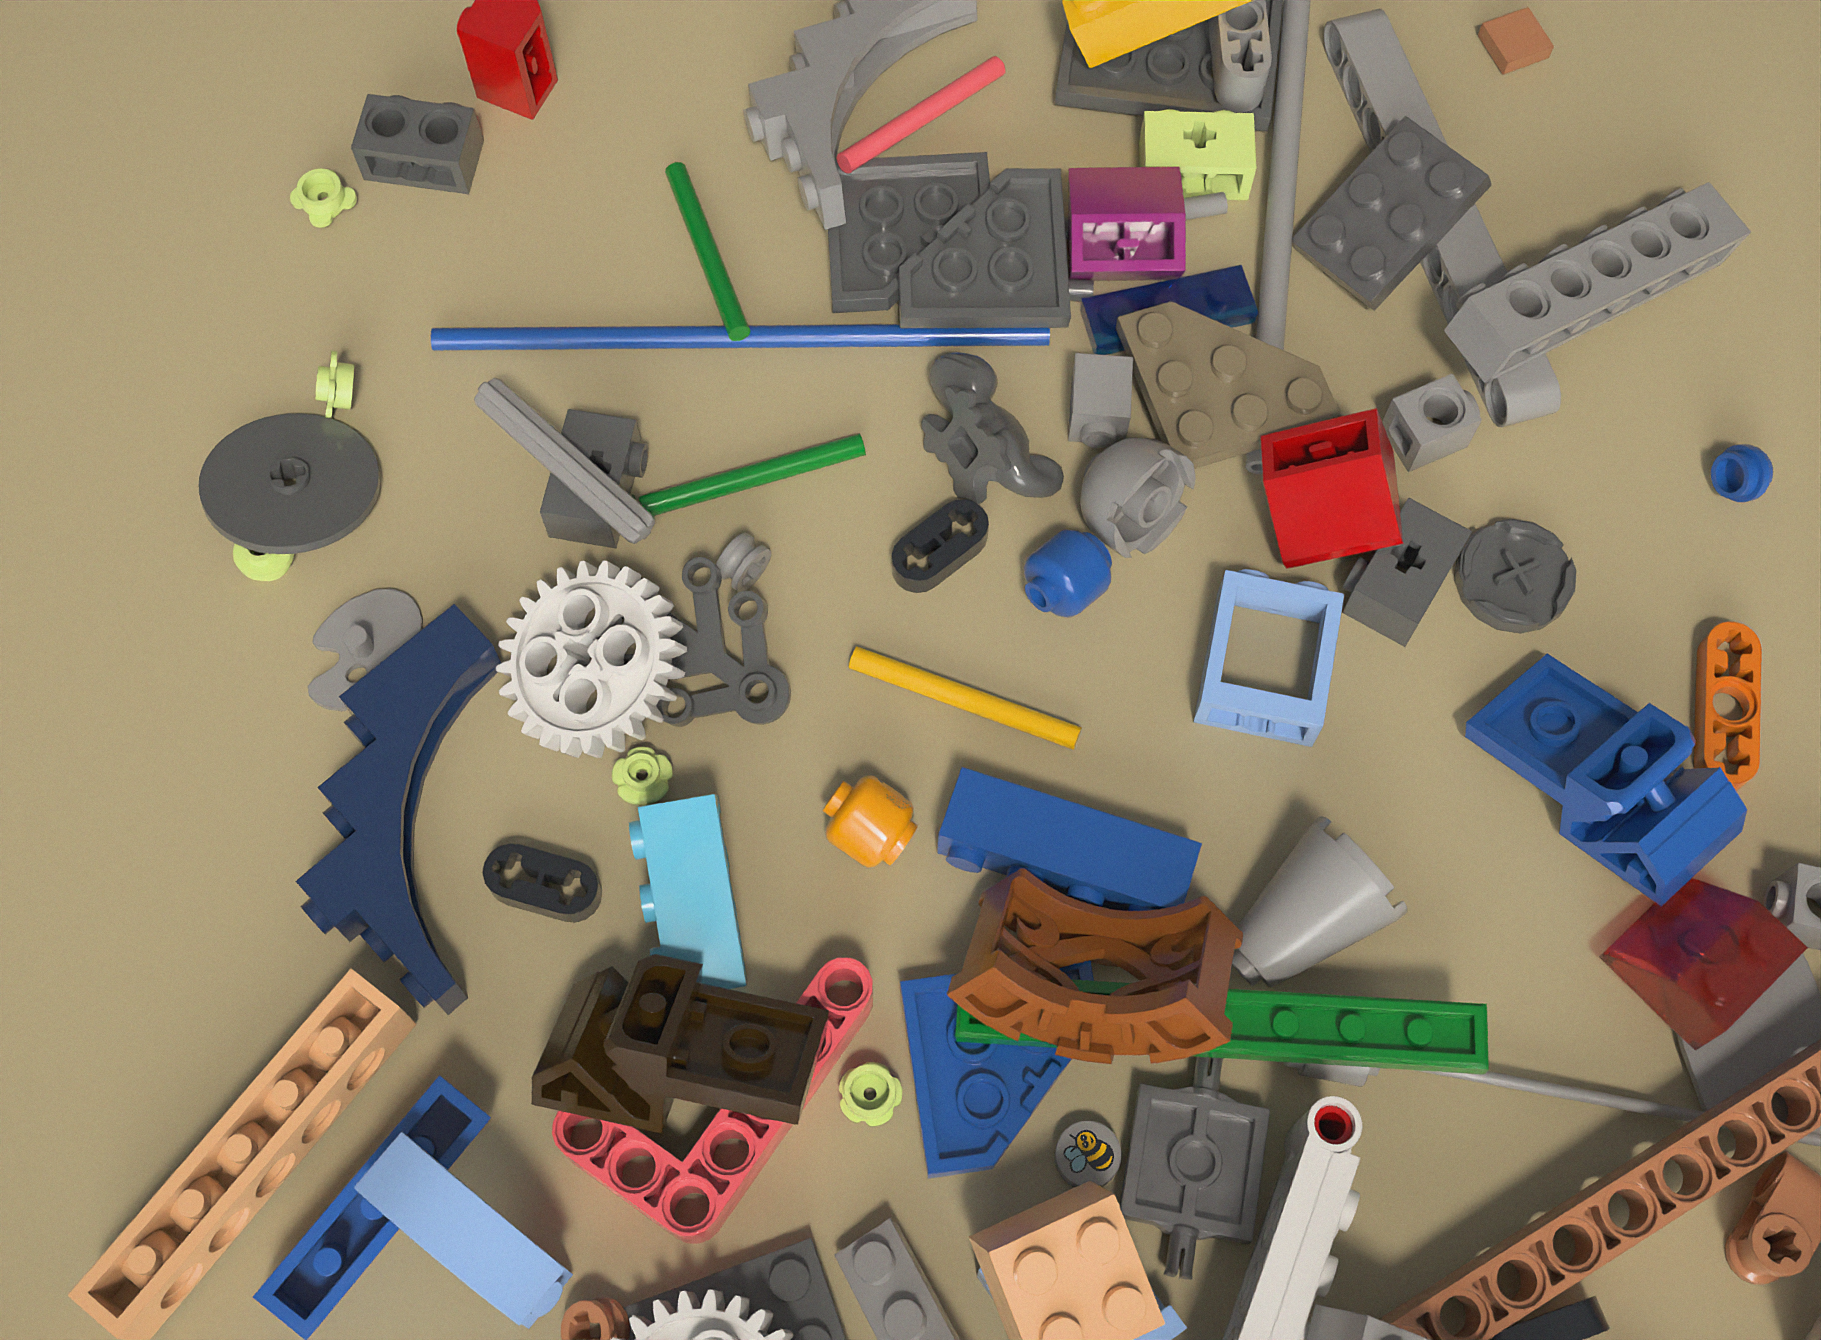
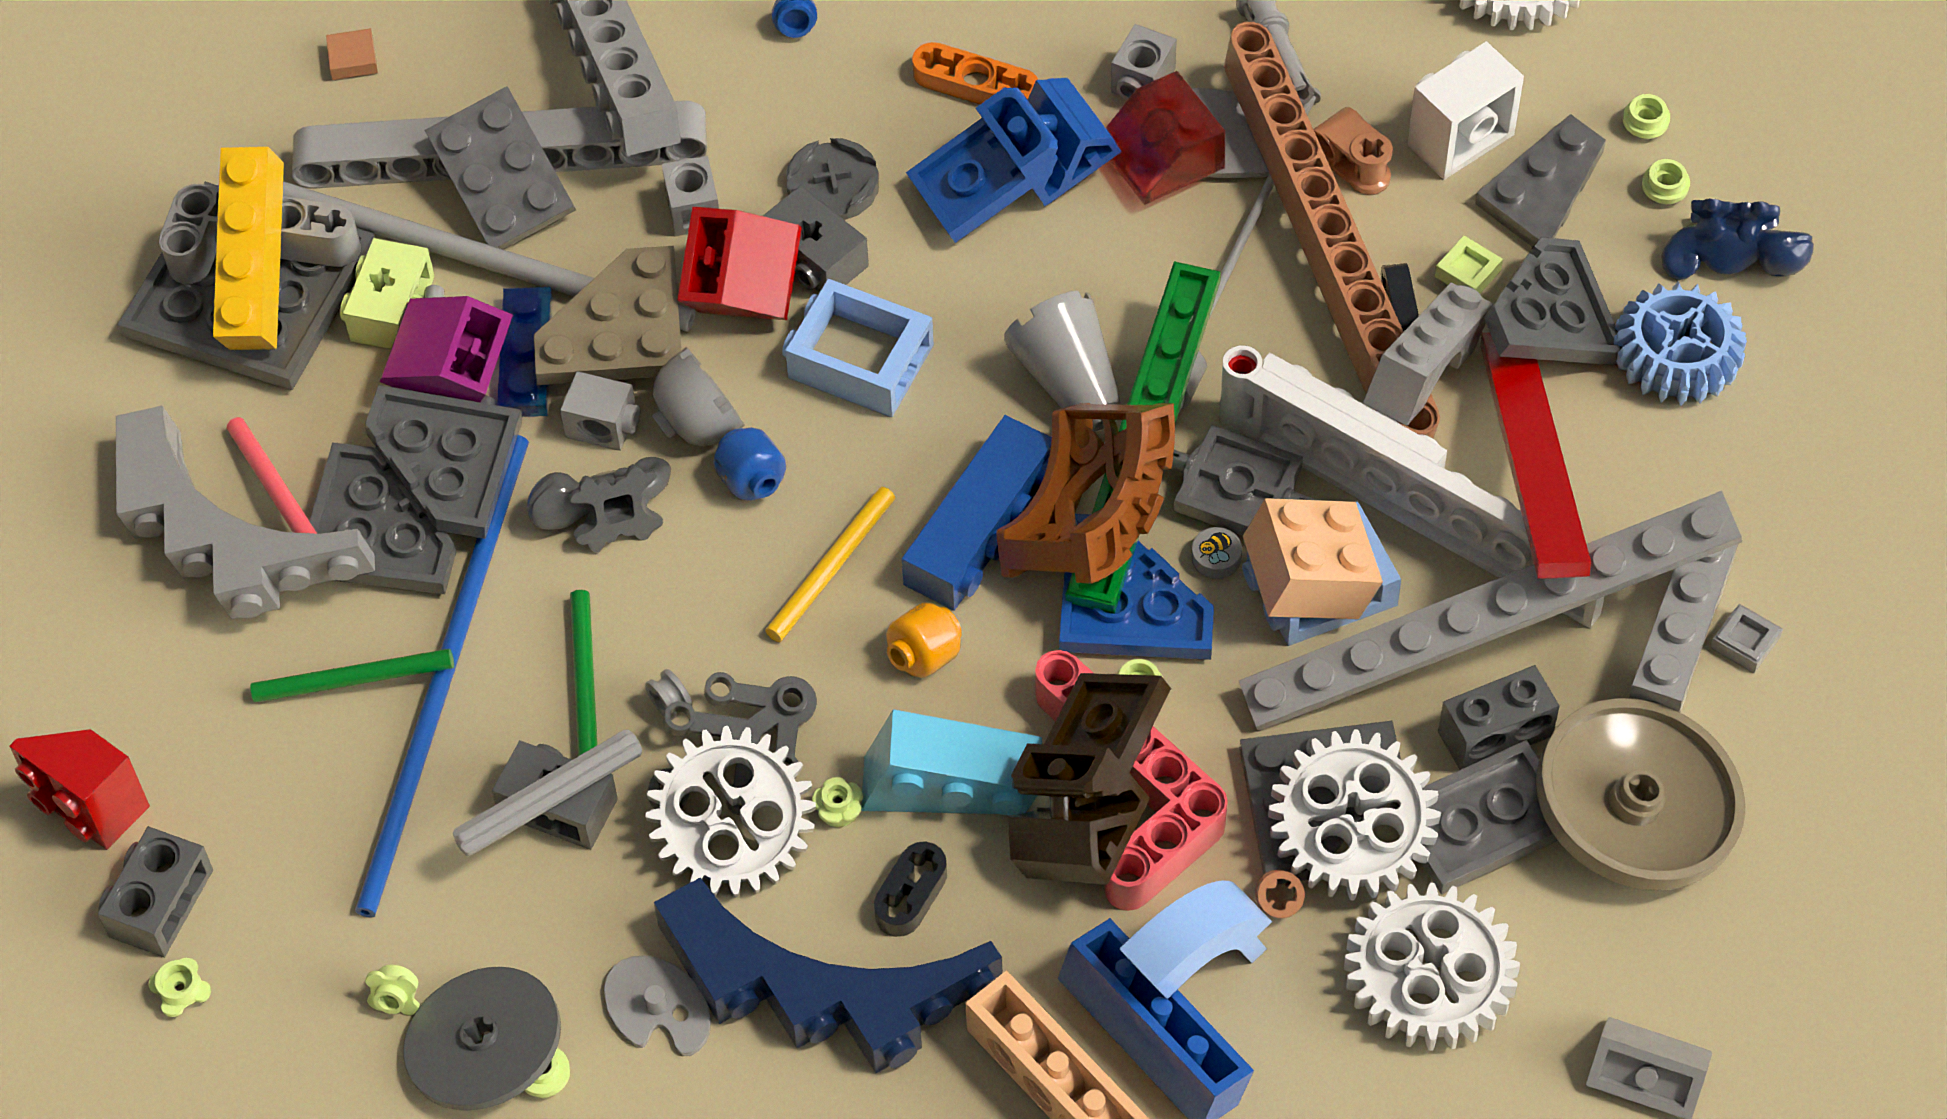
camera: 75 degrees left, 10 degrees down
(947, 555) = (683, 558): black beam -> none

